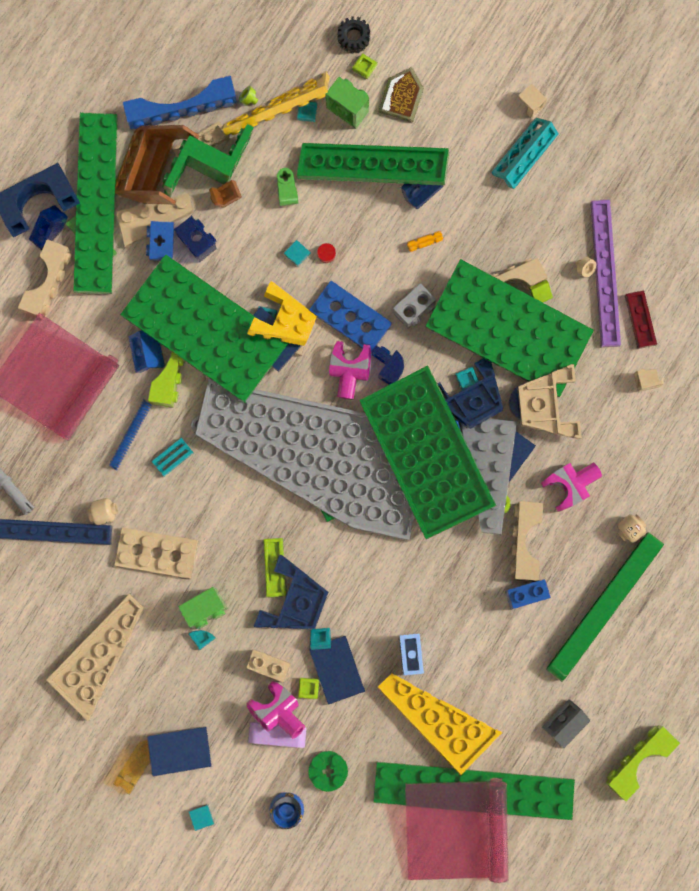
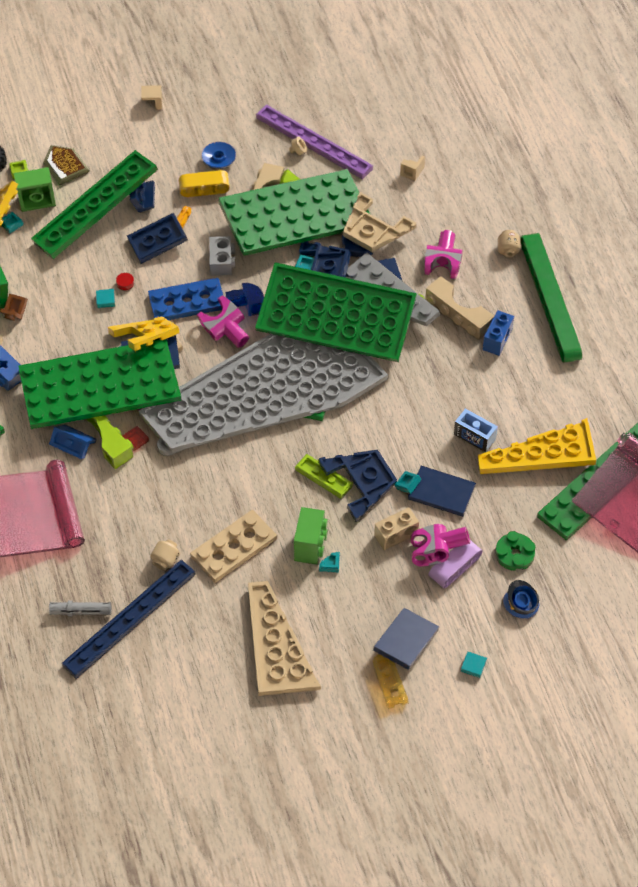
camera: 50 degrees left, 25 degrees down
(122, 446) = (124, 491): blue piece -> none
(173, 456) = (171, 468): teal tile -> none
(188, 395) = (136, 437): none -> clear red tile
(200, 248) = (26, 347): clear blue brick -> none
(286, 189) = (52, 268): bright green piece -> none
(308, 688) = (438, 516): lime tile -> none
(388, 240) = (157, 238): none -> dark blue tile
(477, 226) = (204, 183): none -> yellow beam
(520, 203) = (218, 155): none -> blue dish
(528, 153) = (187, 123): teal fence -> none
(566, 723) = (615, 376): dark grey panel -> none
(640, 319) = (366, 144): dark red tile -> none

